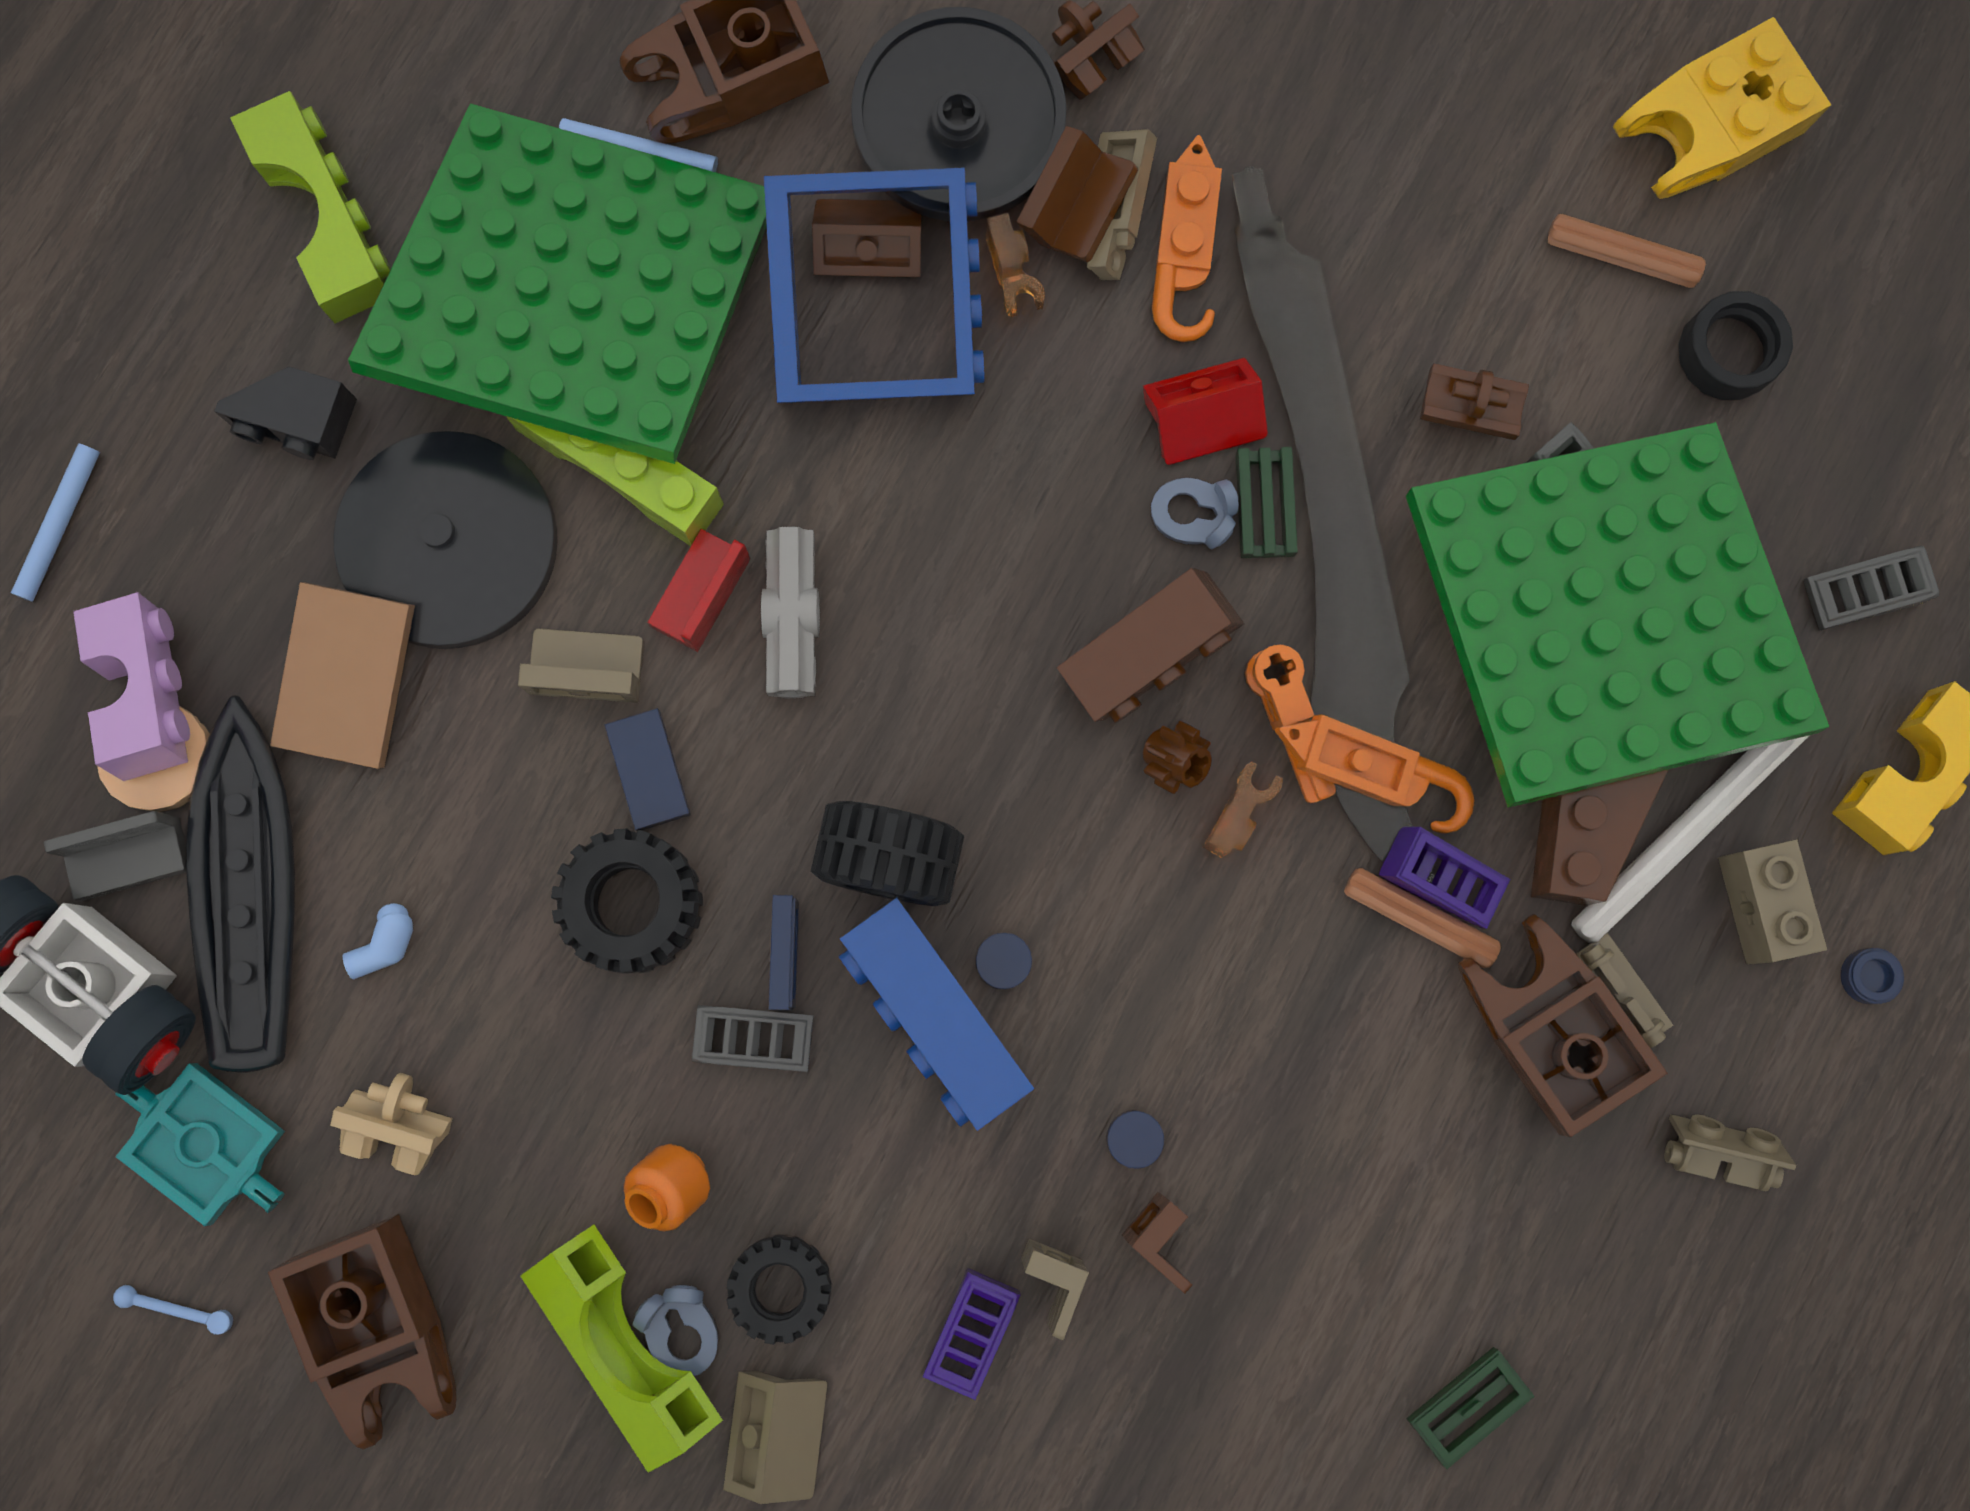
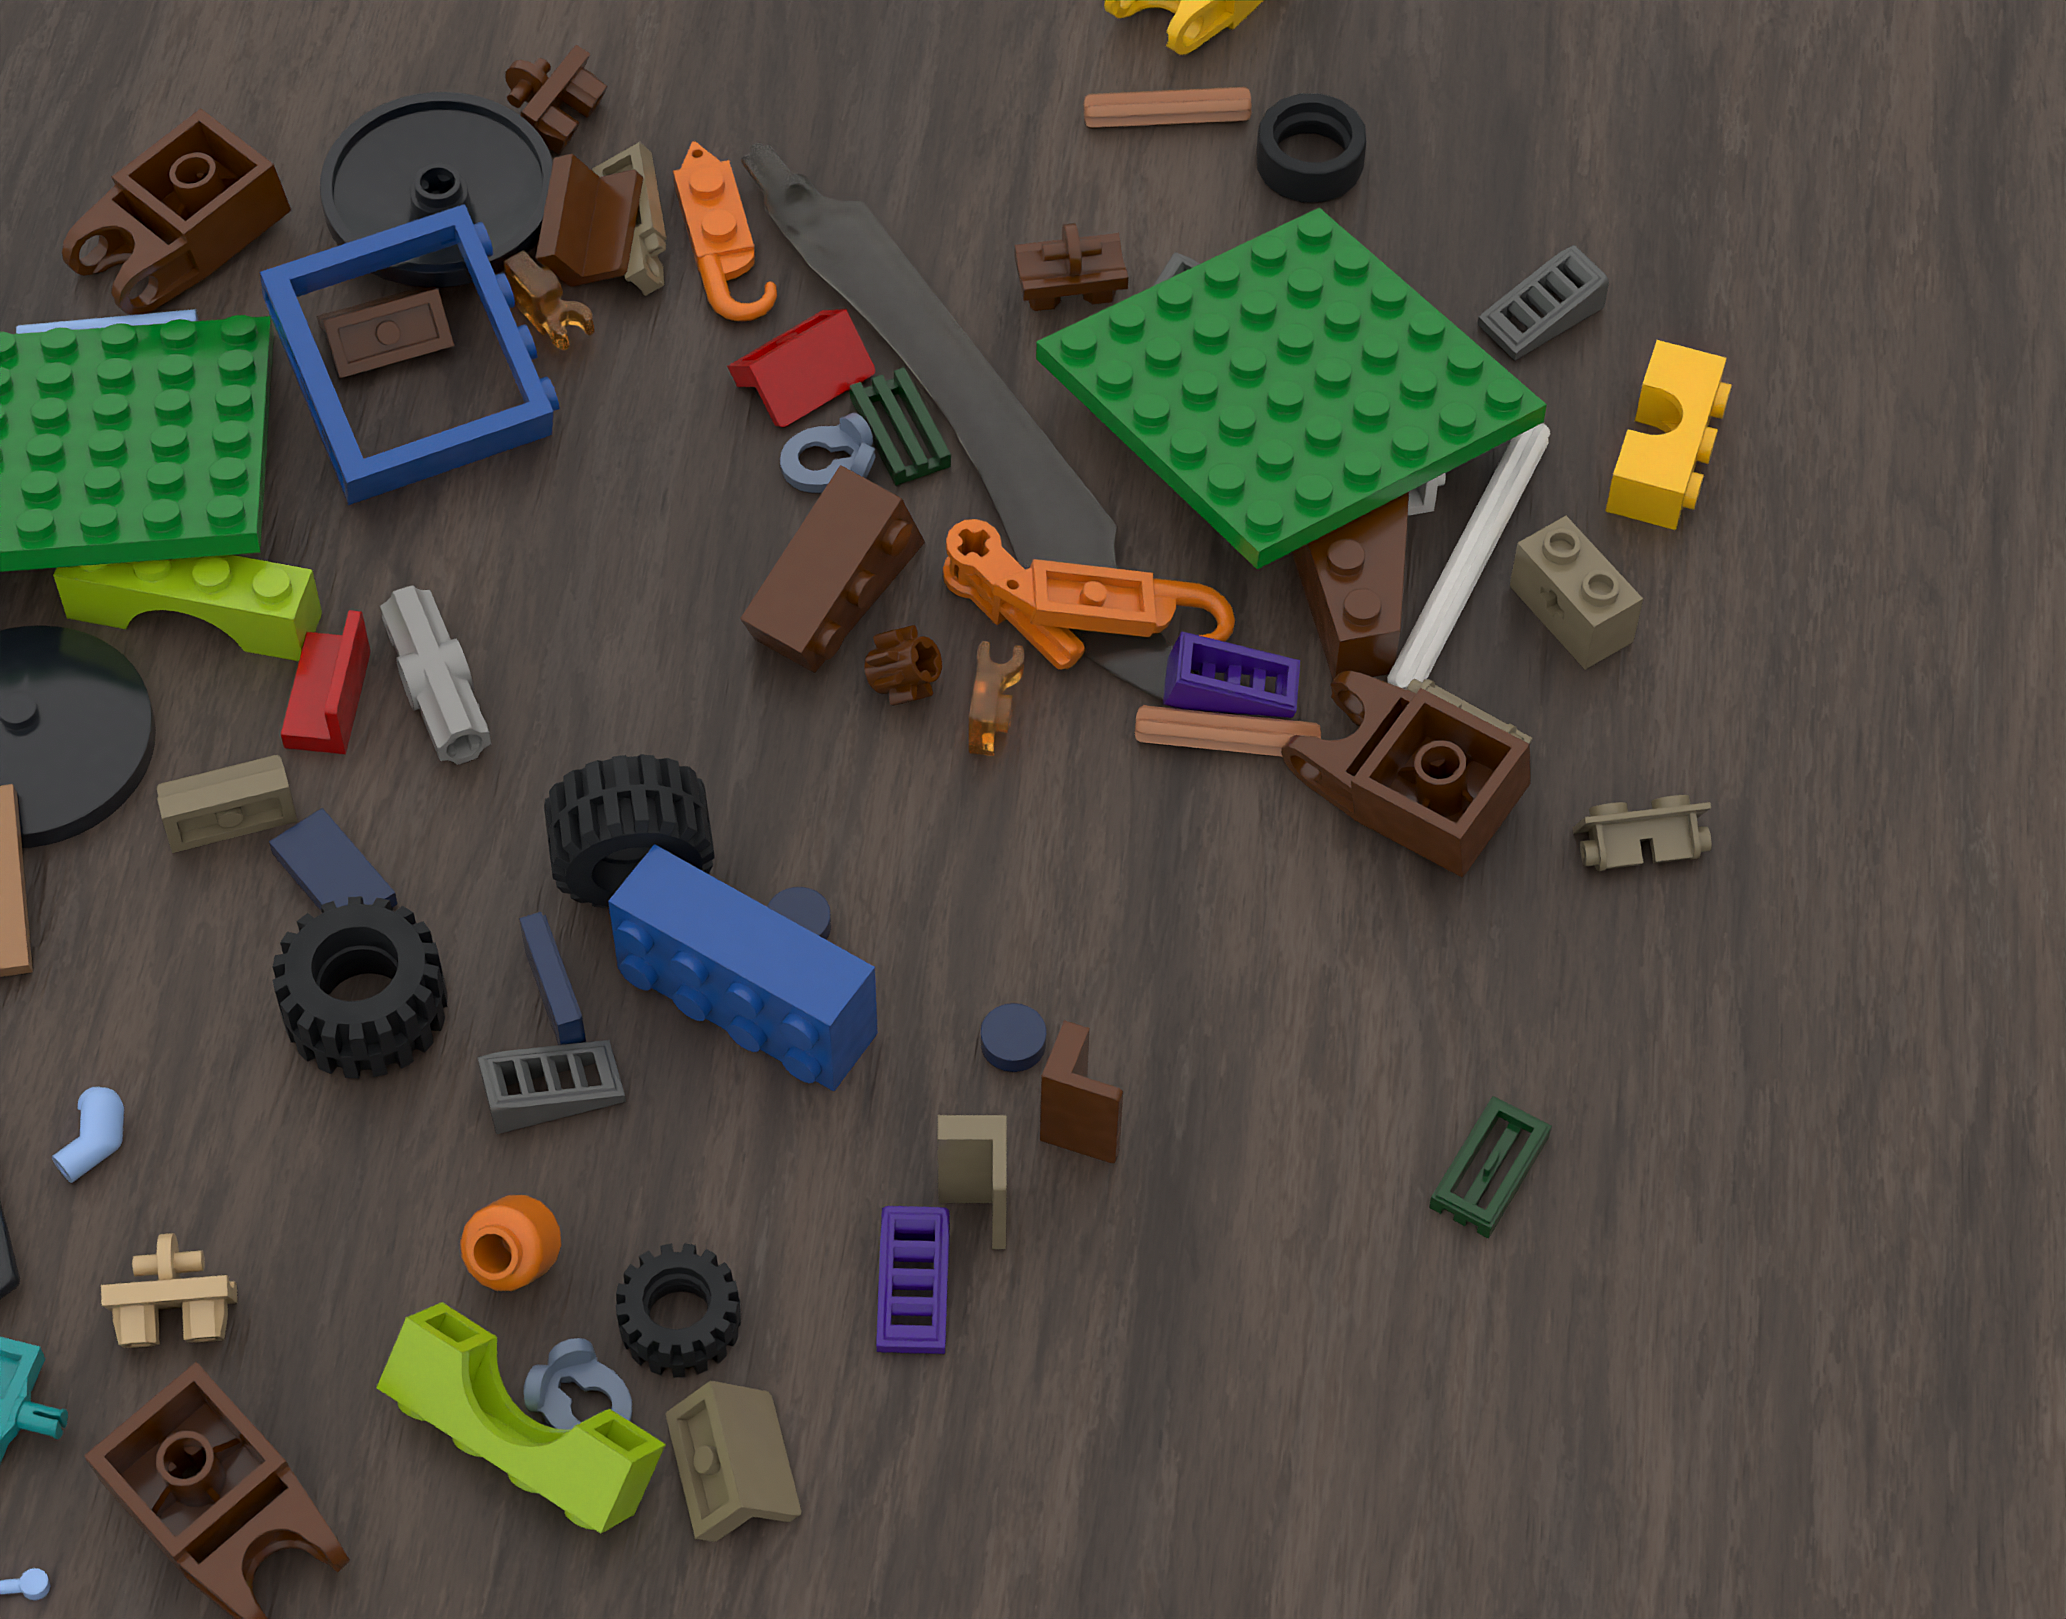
camera: 15 degrees left, 25 degrees down
(1872, 976) = (1714, 633): dark blue tile -> none

